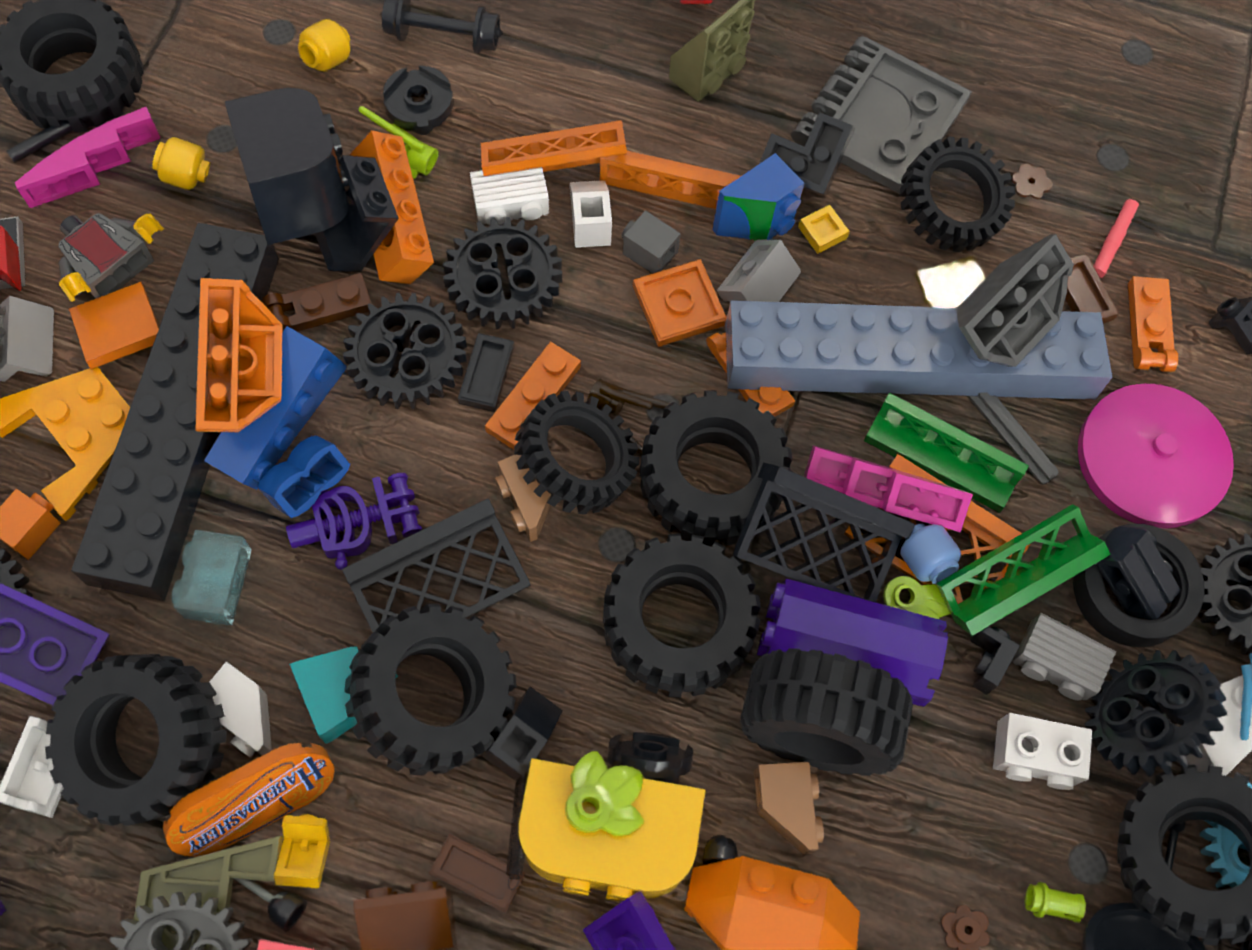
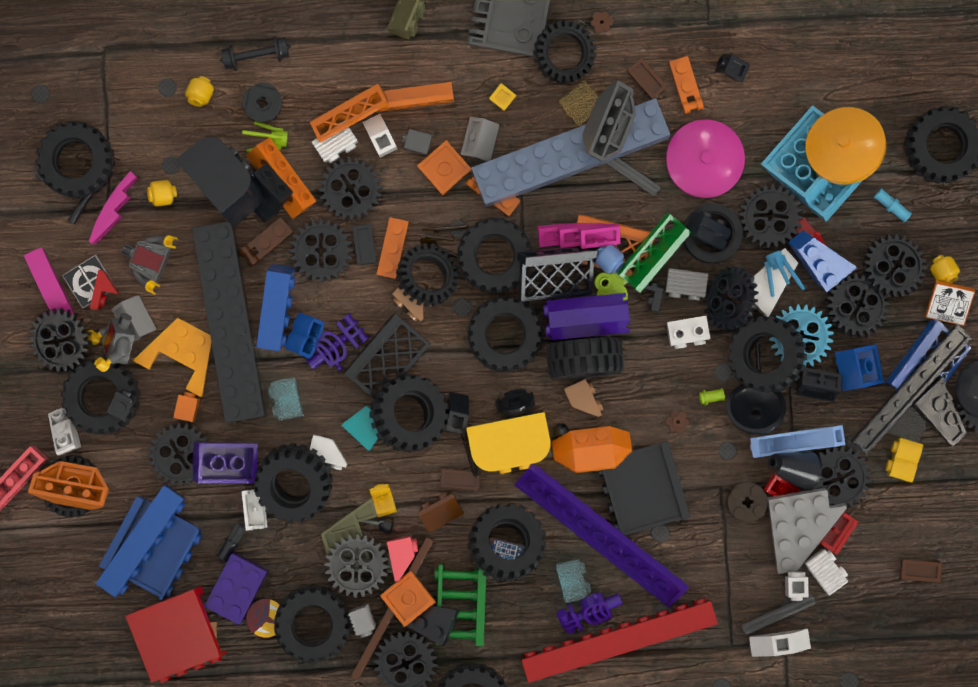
camera: 15 degrees left, 20 degrees up
(115, 325) = (176, 293): orange tile -> none
(236, 357) = (253, 299): orange wedge -> none
(248, 799) = (351, 488): orange tile -> none
(610, 793) = (505, 430): lime plate -> none
(759, 202) = (466, 100): blue slope -> none
(821, 156) = (480, 66): black brick -> none
(945, 453) = (601, 202): green fence -> none
(1115, 237) = (654, 41): coral piece -> none

